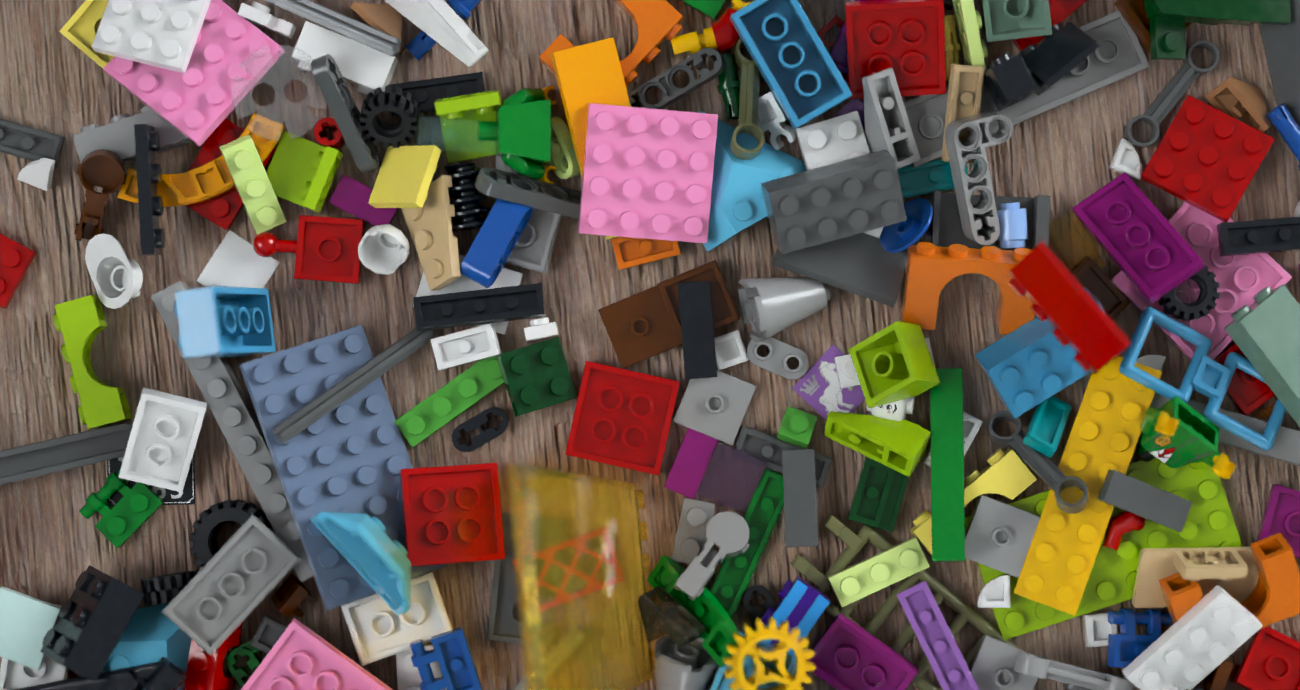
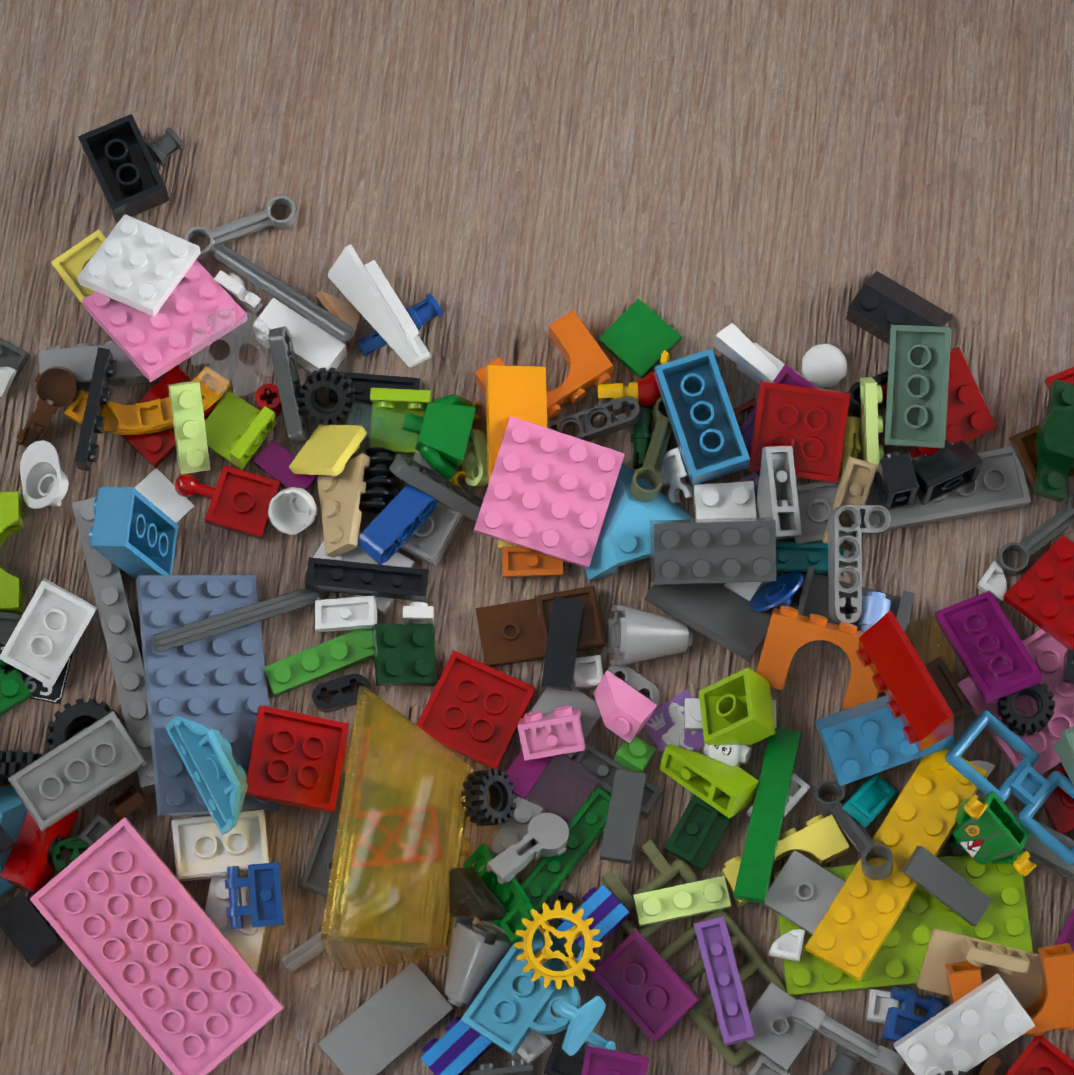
camera: 10 degrees right, 15 degrees down
(646, 510) = (500, 797): none -> black tyre
(707, 428) = (551, 733): none -> bright pink bracket
(774, 383) = (622, 707): none -> bright pink slope
(1121, 525) = (920, 907): red arm -> none

